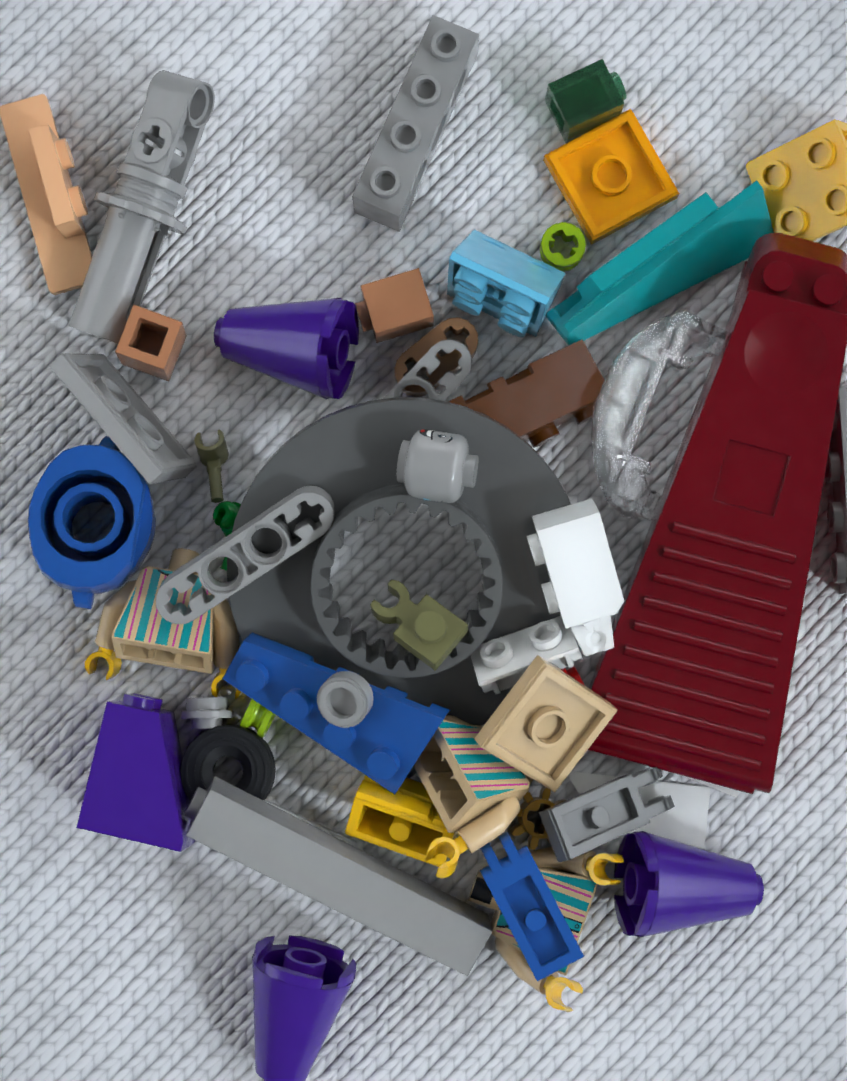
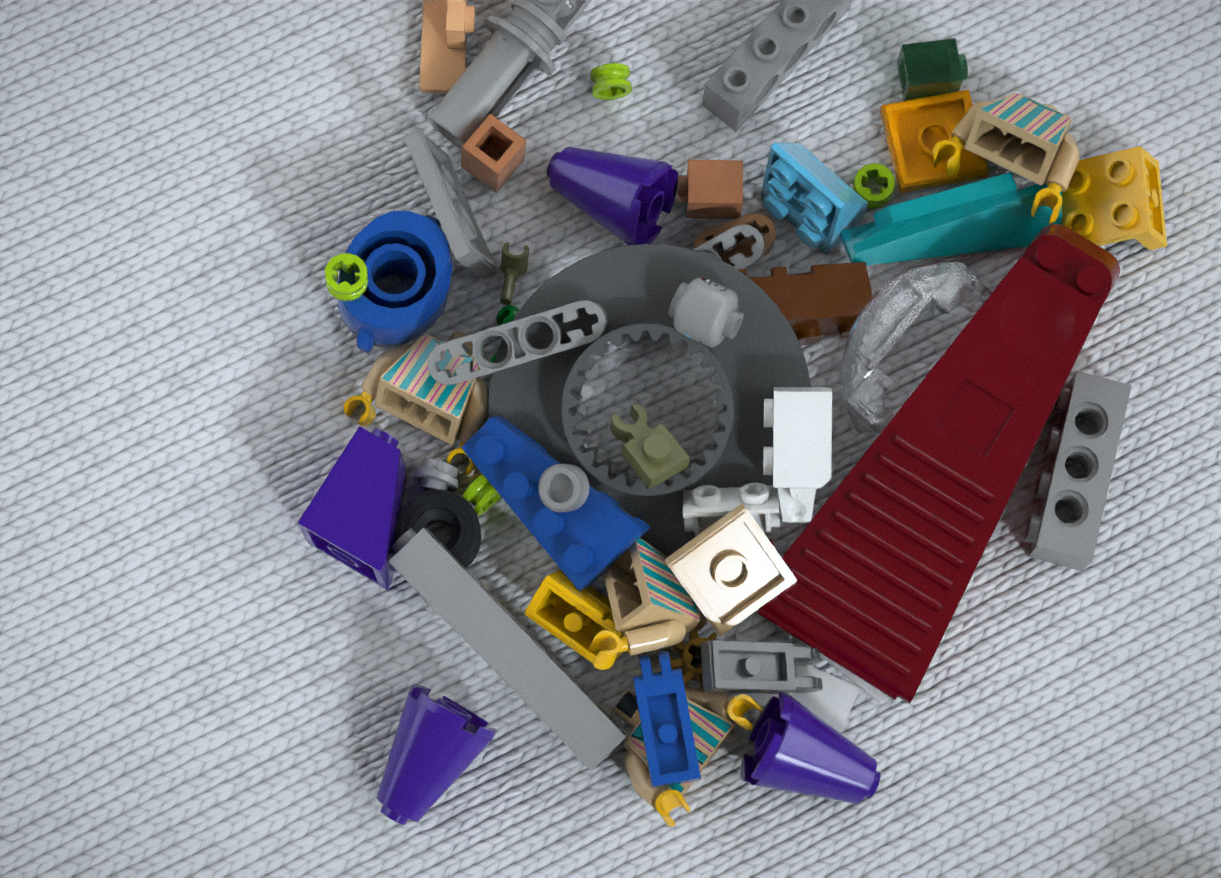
camera: 15 degrees right, 10 degrees down
(36, 528) = (348, 263): none -> lime bush
(250, 220) = (611, 81): none -> lime bush
(705, 150) = (1020, 137): none -> tan torso

